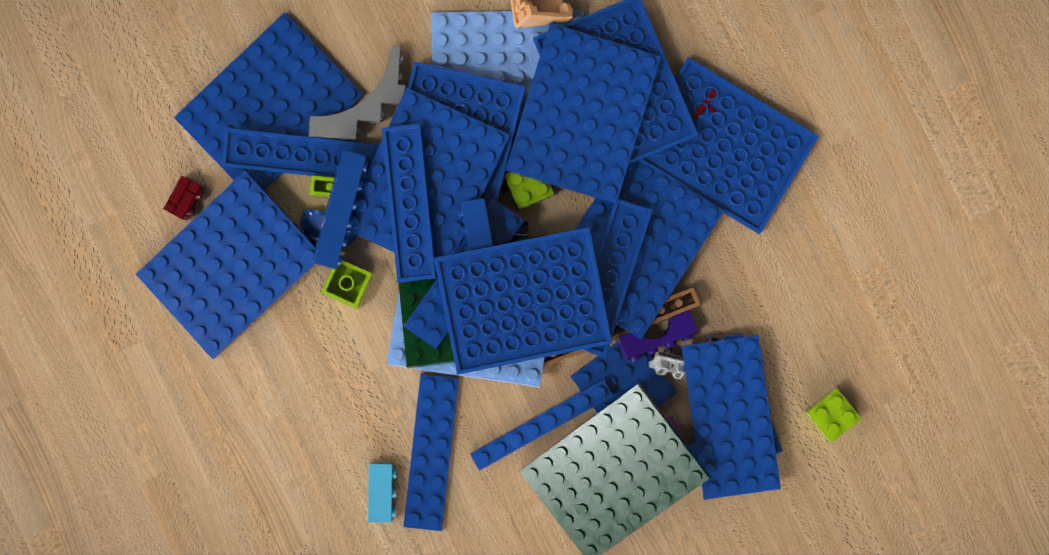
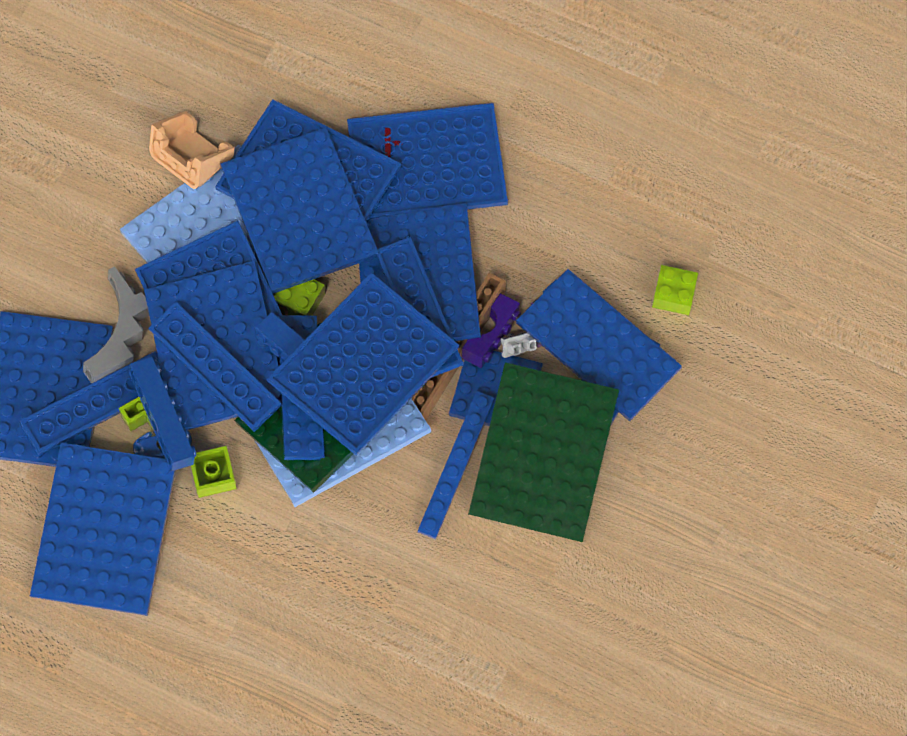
camera: 35 degrees left, 20 degrees down
(184, 198) = (25, 507): dark red brick -> none
(381, 492) = (370, 613): medium azure brick -> none
(431, 452) = (385, 555): blue plate -> none

